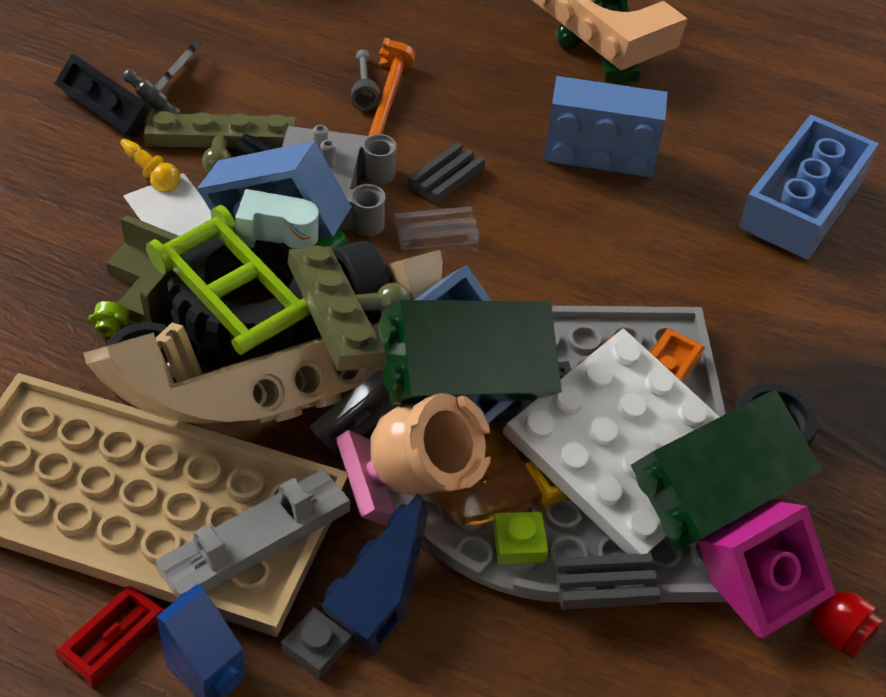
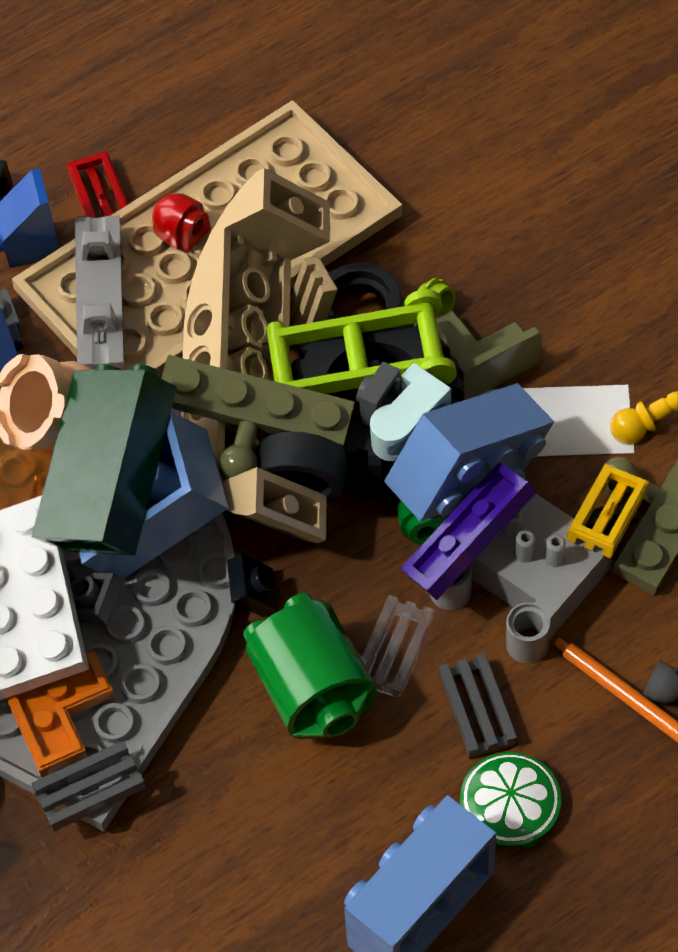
camera: 130 degrees right, 10 degrees up
(133, 510) = (180, 220): none -> red piece
(262, 134) = (594, 536): none -> yellow tile
(271, 239) = (378, 391): none -> dark grey plate
(358, 173) = (468, 530): none -> dark purple plate
(499, 135) = (513, 797): none -> dish
(503, 235) = (310, 668): none -> green cylinder
(689, 313) = (80, 770): none -> dark grey tile

